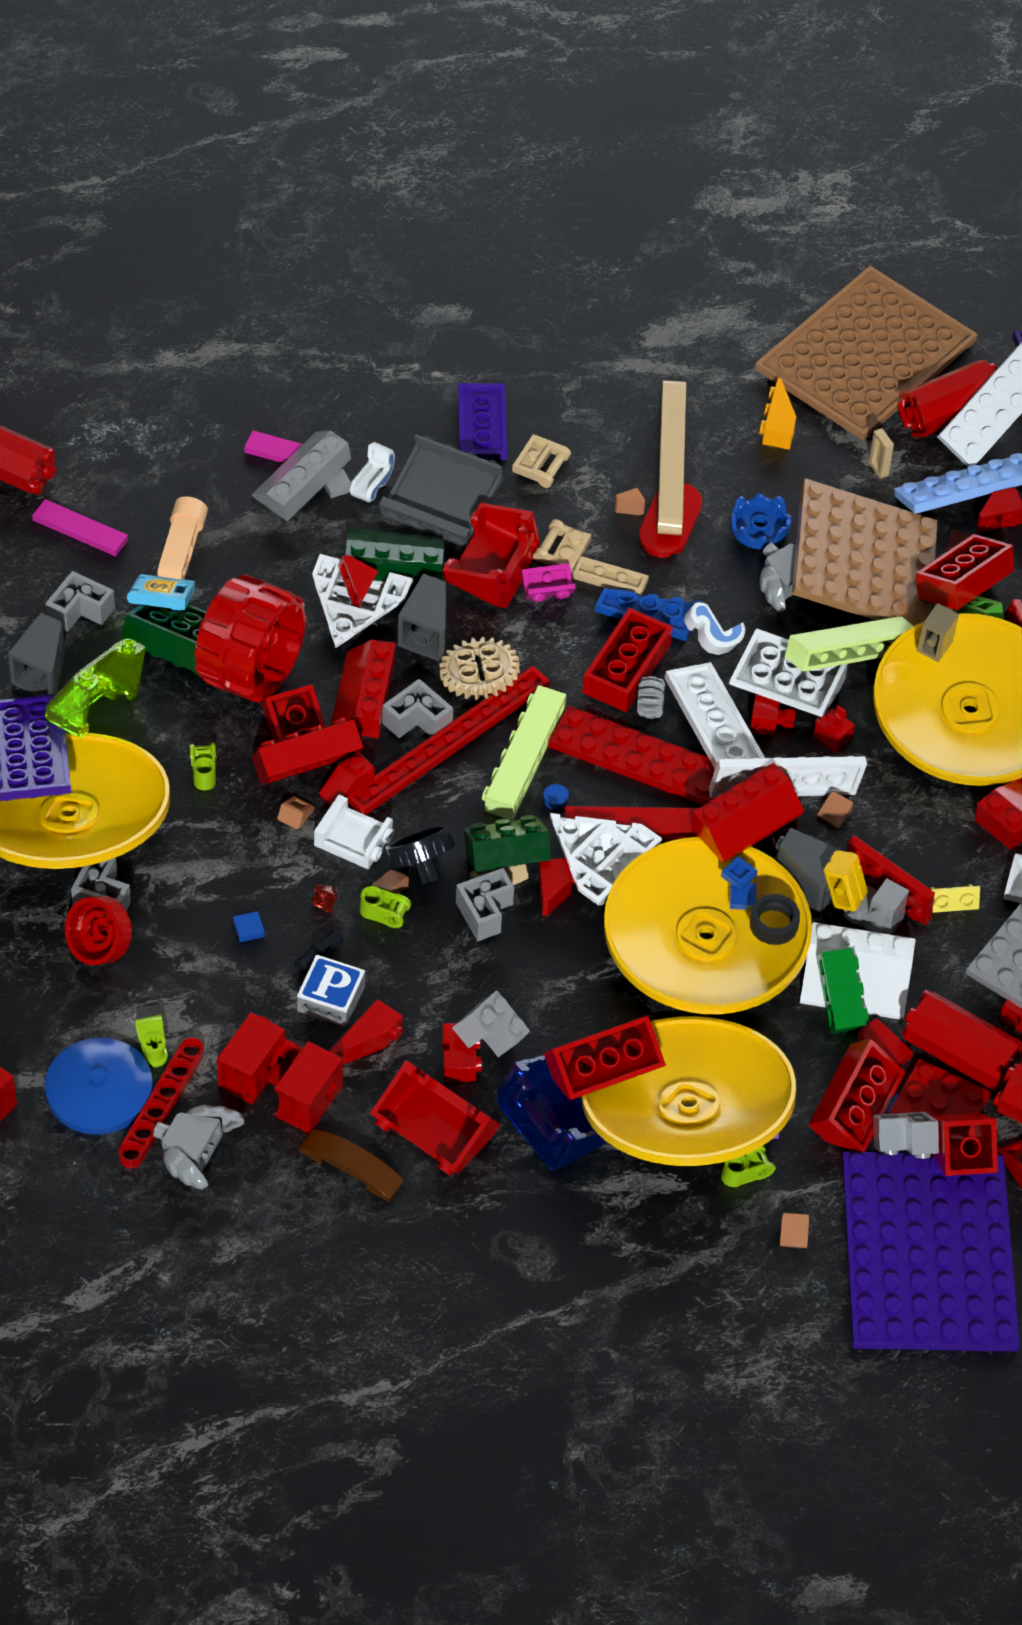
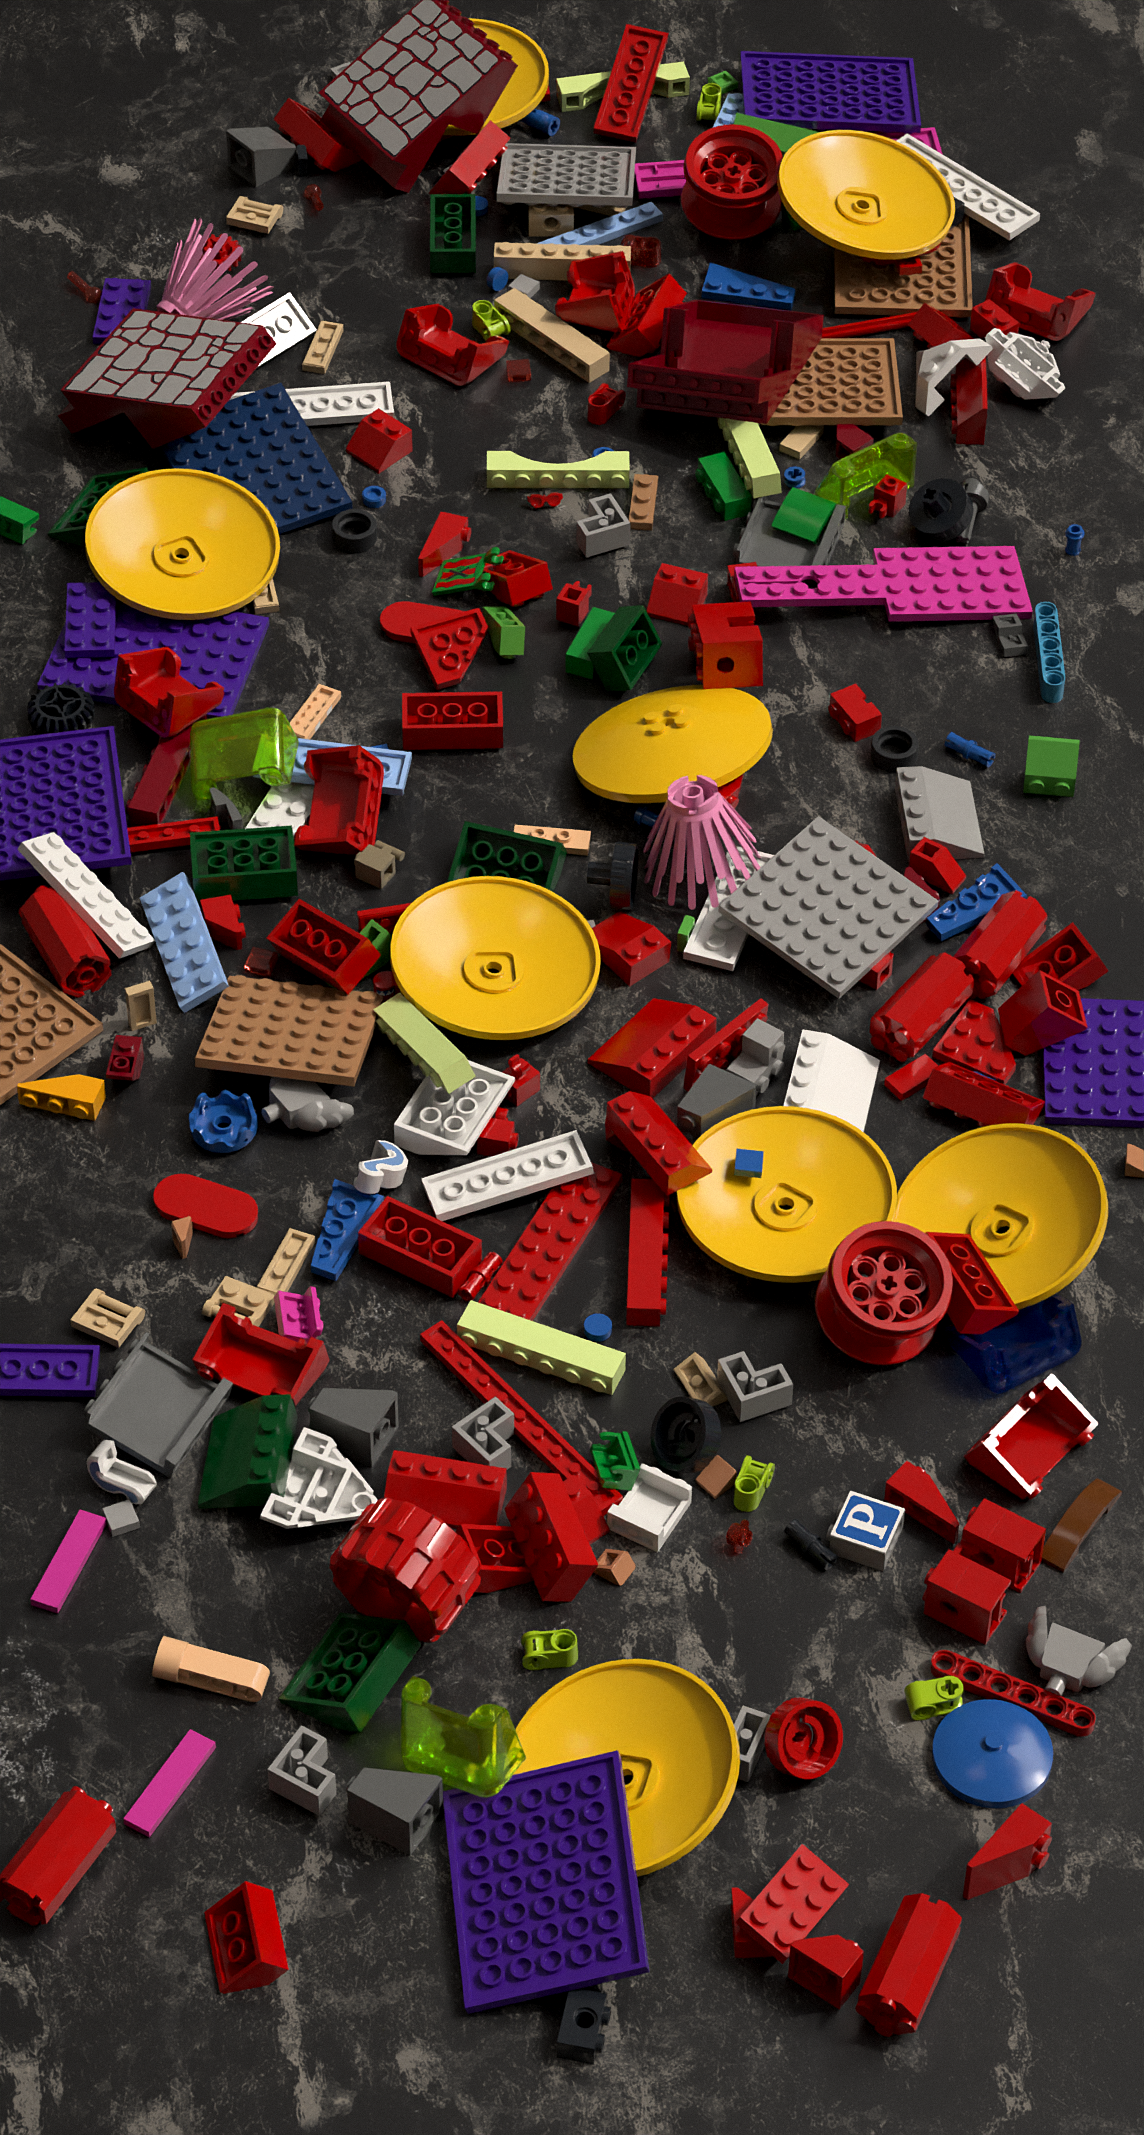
camera: 85 degrees left, 5 degrees down
(161, 592) = (292, 1690): medium azure container -> none
(248, 926) = (775, 1611): blue tile -> none
(303, 474) = (113, 1542): light grey slope -> none
(356, 578) = (309, 1478): red slope -> none
(397, 803) = (615, 1461): none -> green hinge
(459, 1061) = (942, 1419): red brick -> none
(461, 671) = (424, 1382): tan gear -> none
(494, 1023) = (920, 1379): light grey brick -> none
(507, 843) = (680, 1357): dark green brick -> none
(555, 883) = (722, 1330): red slope -> none
(561, 954) = (903, 1273): none -> red wheel
(600, 851) = (692, 1280): white wedge -> none
(605, 709) = (480, 1276): none -> red pin
(651, 697) = (477, 1224): light grey gear -> none
(671, 458) = (122, 1191): tan beam -> none
(739, 873) = (728, 1157): blue tile -> none
(779, 903) = (792, 1113): black tyre -> none
(808, 775) = (596, 1113): white plate -> none
(818, 450) = (126, 1058): none -> dark red slope
(835, 810) = (618, 1086): nougat slope -> none
(842, 990) = (865, 1093): green brick -> none
(845, 880) = (745, 1063): yellow brick -> none
(895, 832) = (654, 1045): none -> red slope
(906, 1131) = (1030, 1053): light grey brick -> none
(938, 632) = (433, 957): dark tan brick -> none
(956, 898) = (733, 998): light yellow hinge -> none

